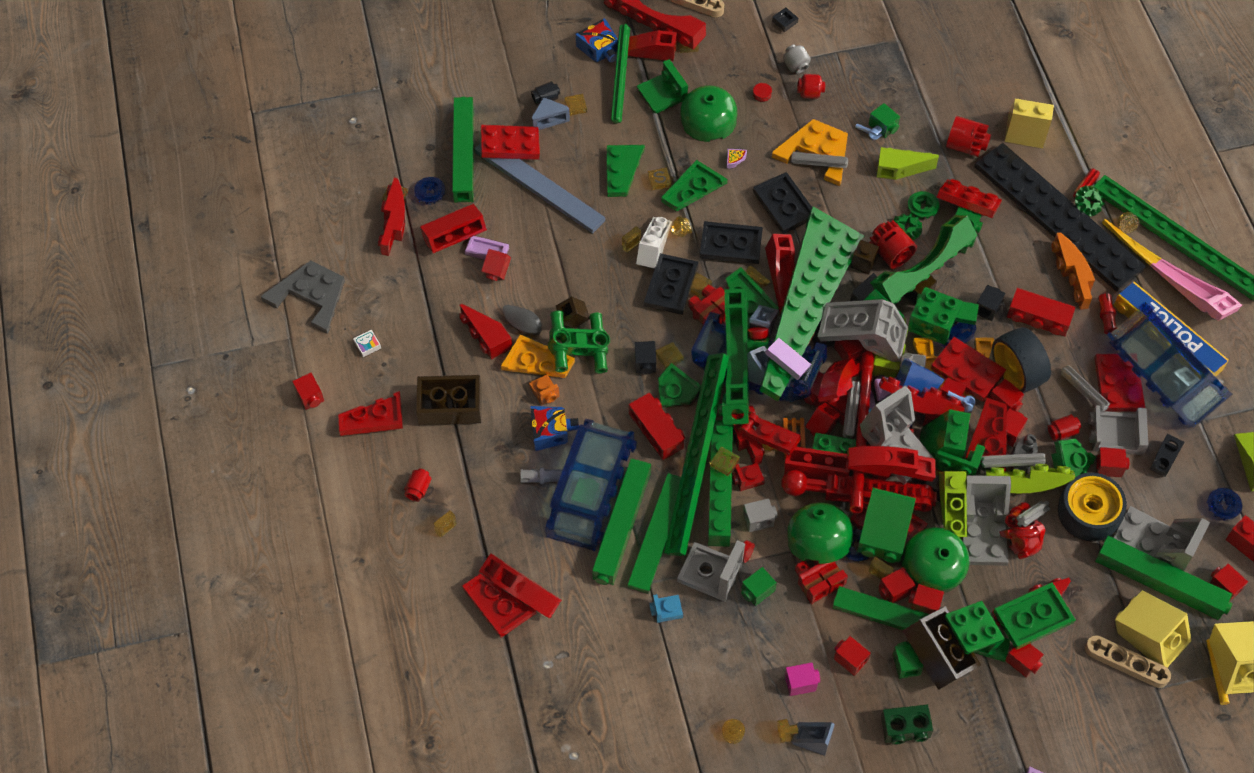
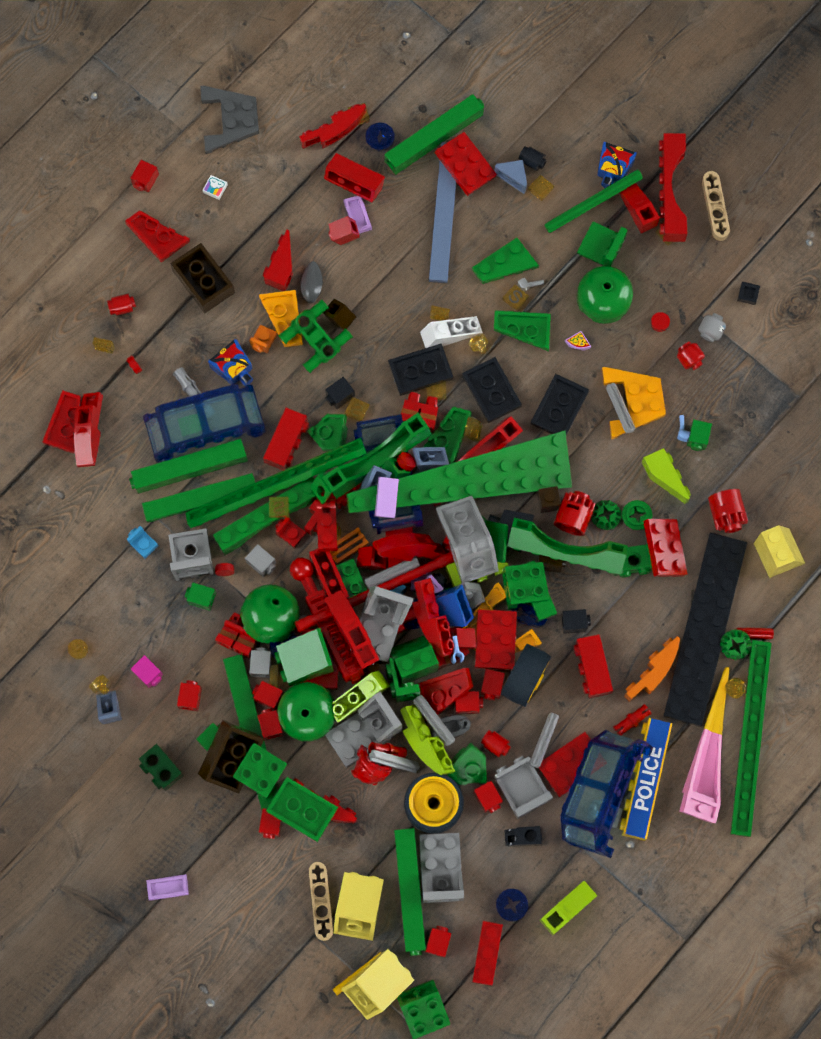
camera: 55 degrees right, 15 degrees up
(485, 509) = (134, 364): none -> red tile
(653, 165) = (524, 285): none -> light grey hand
(860, 574) = (260, 663): none -> light grey brick

